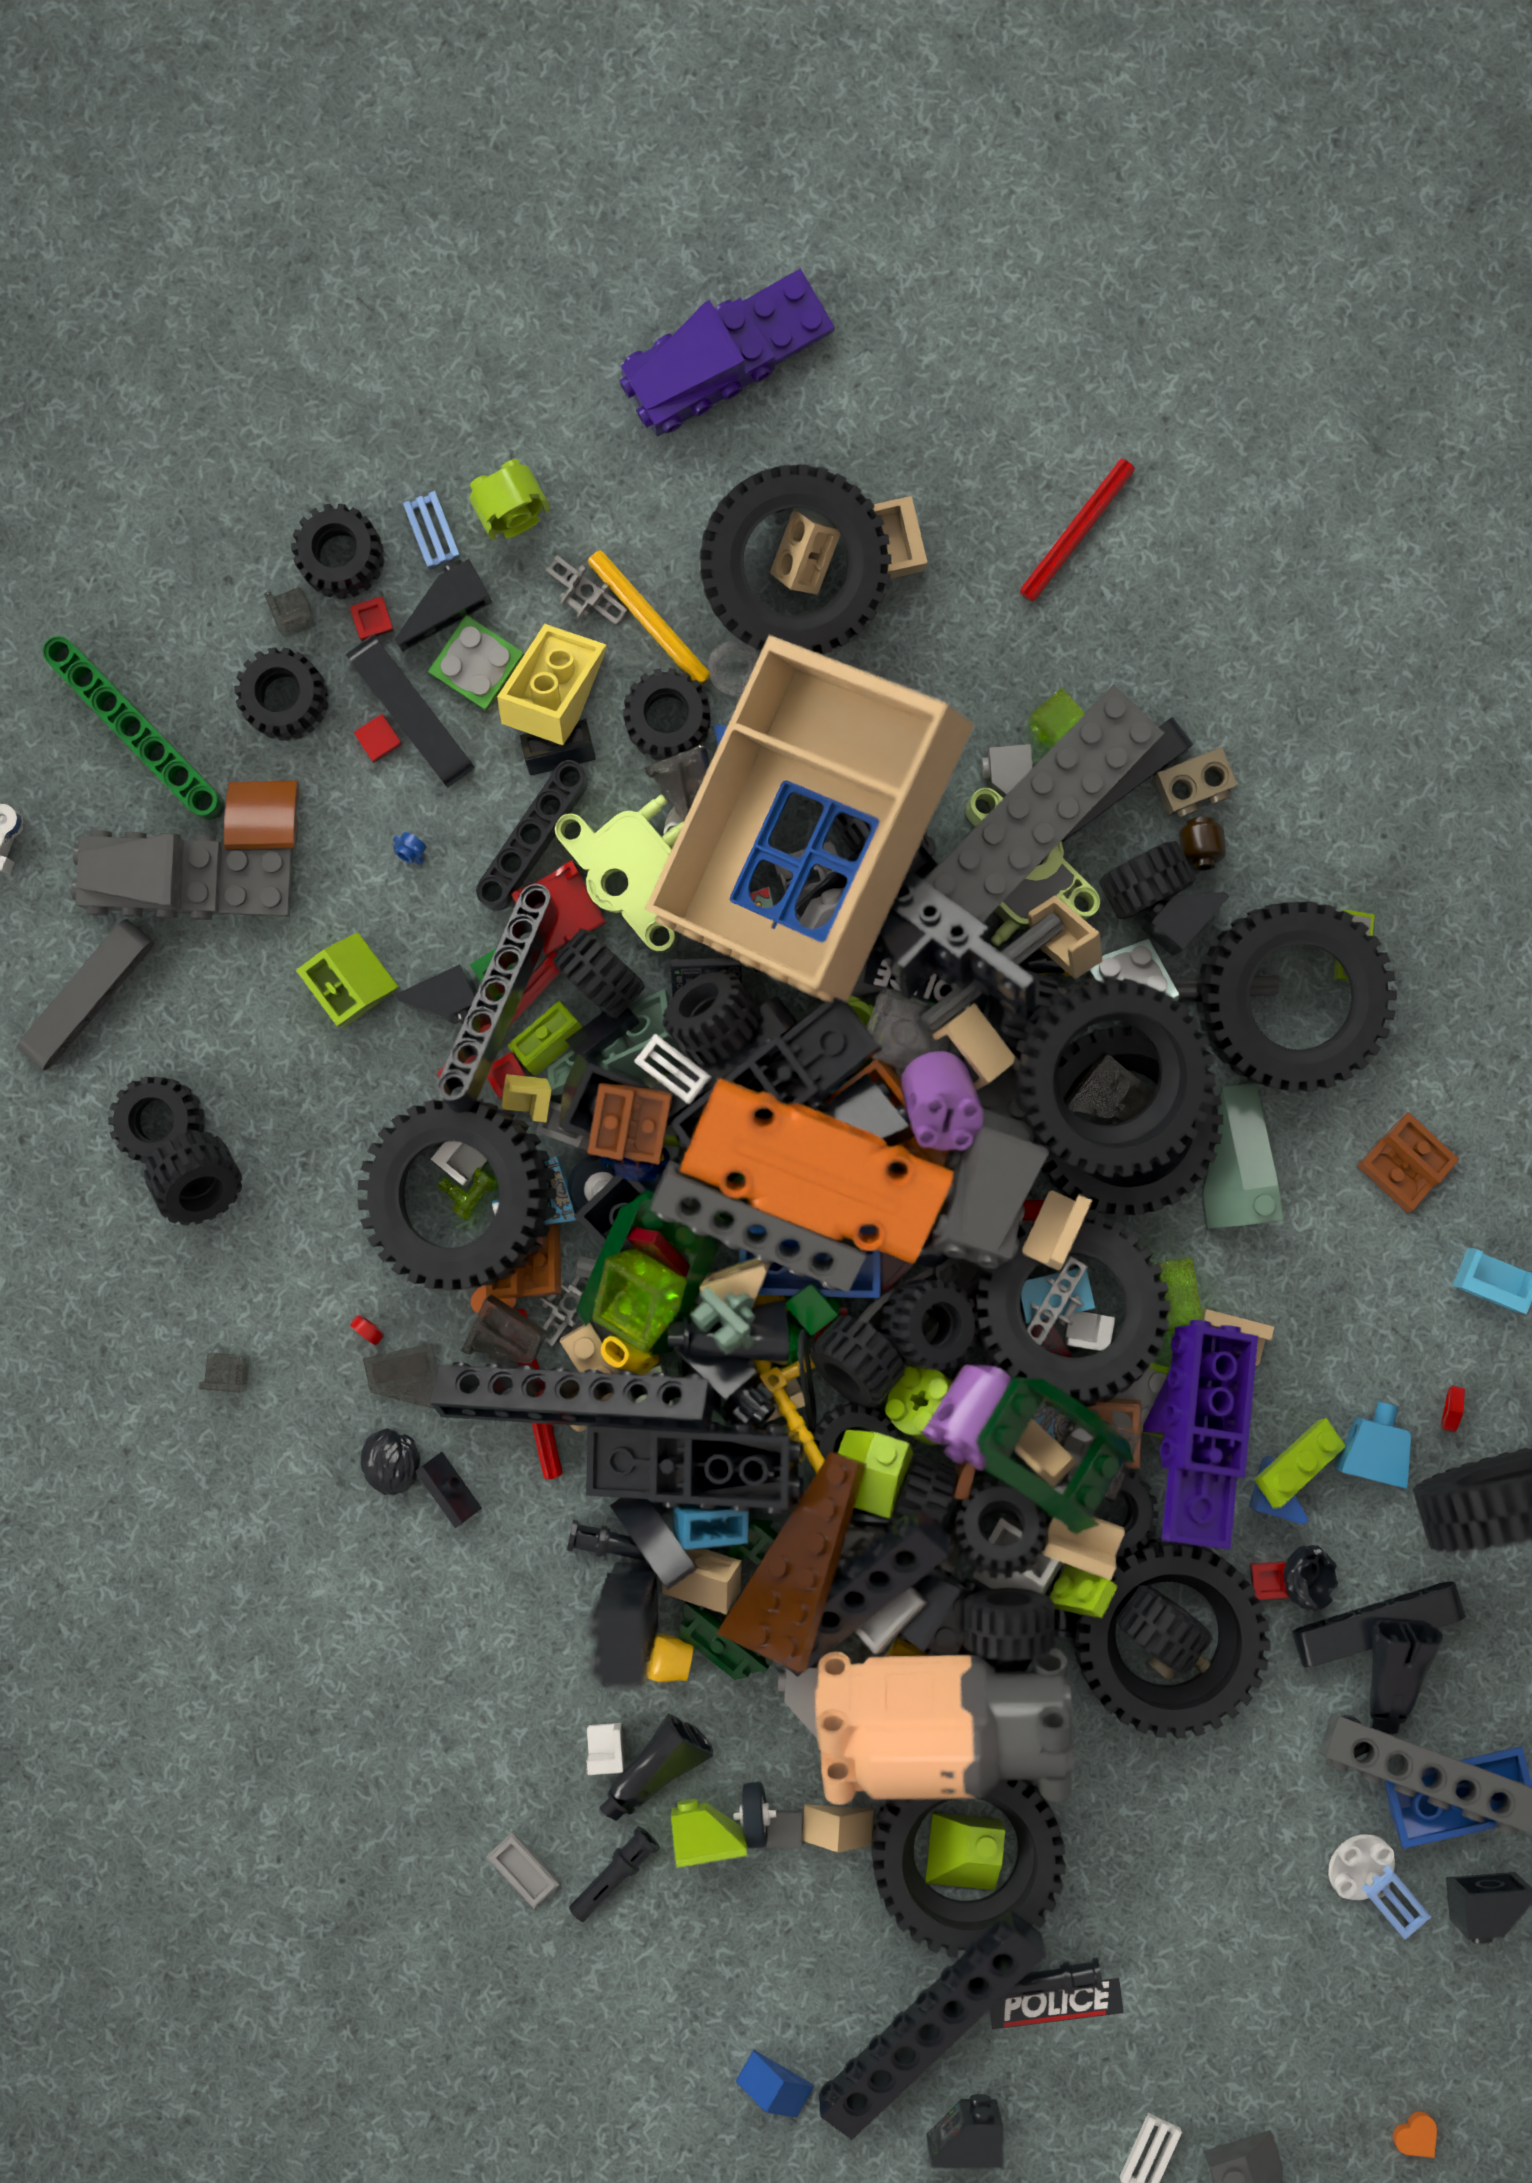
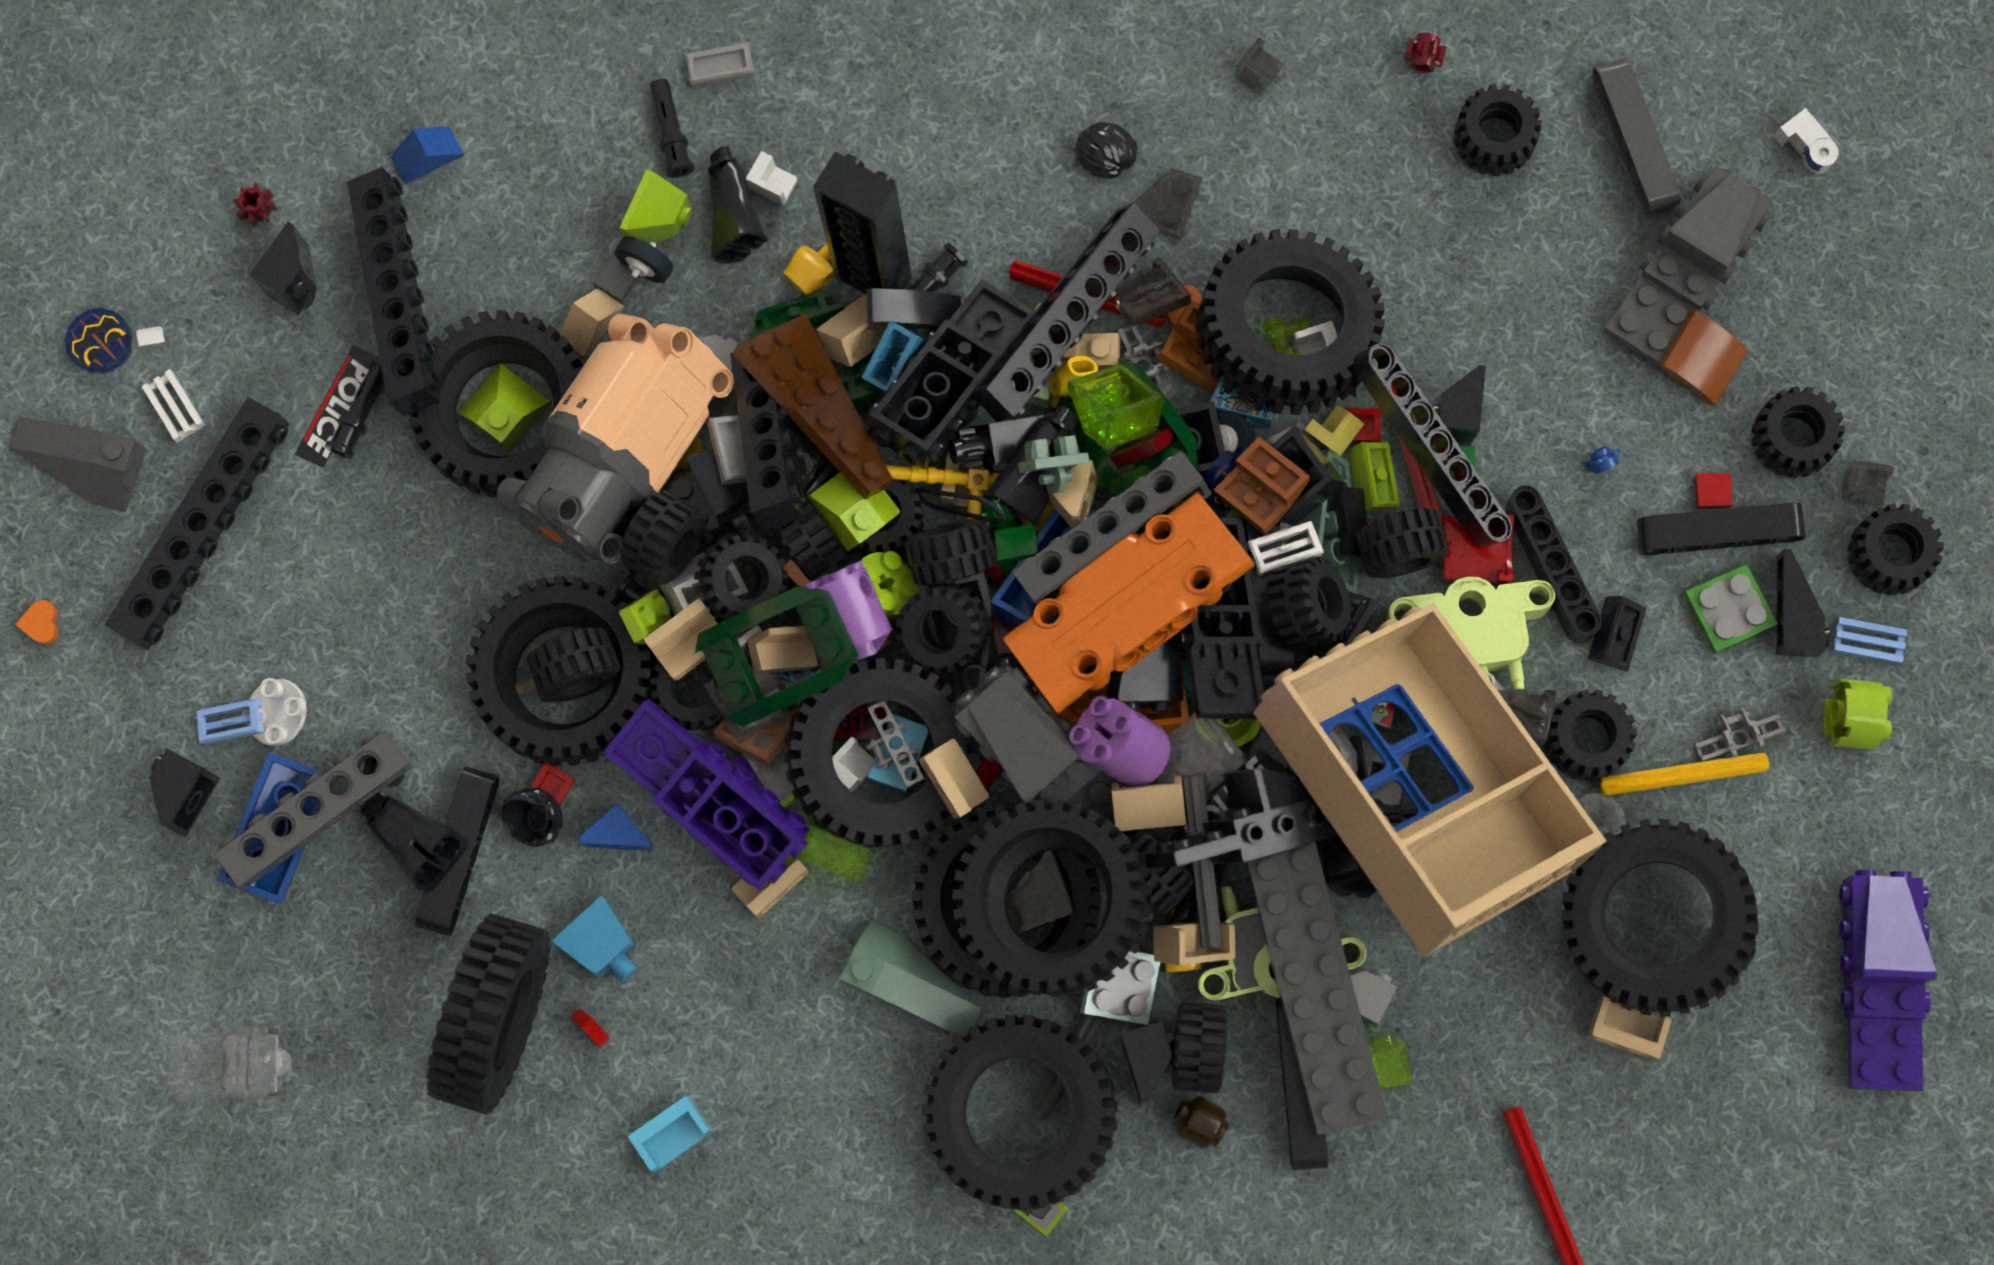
camera: 130 degrees right, 10 degrees down
(120, 1230) = (1425, 52): none -> dark red gear
(122, 716) = (1853, 292): green beam -> none
(193, 1178) = (1432, 127): black tyre -> none
(347, 979) = (1522, 343): lime slope -> none
(367, 1329) = (1223, 194): red tile -> none
(371, 618) = (1820, 546): red tile -> none
(448, 1489) = (1054, 181): black plate -> none
(551, 684) = (1675, 656): light yellow slope -> none
(805, 551) = (1661, 932): tan brick -> none
(1192, 777) = (1267, 1151): dark tan brick -> none
(1299, 1463) = (631, 866): lime plate -> none
(1365, 2060) = (197, 505): none -> black brick
(1408, 1162) = (817, 1125): dark orange slope -> none

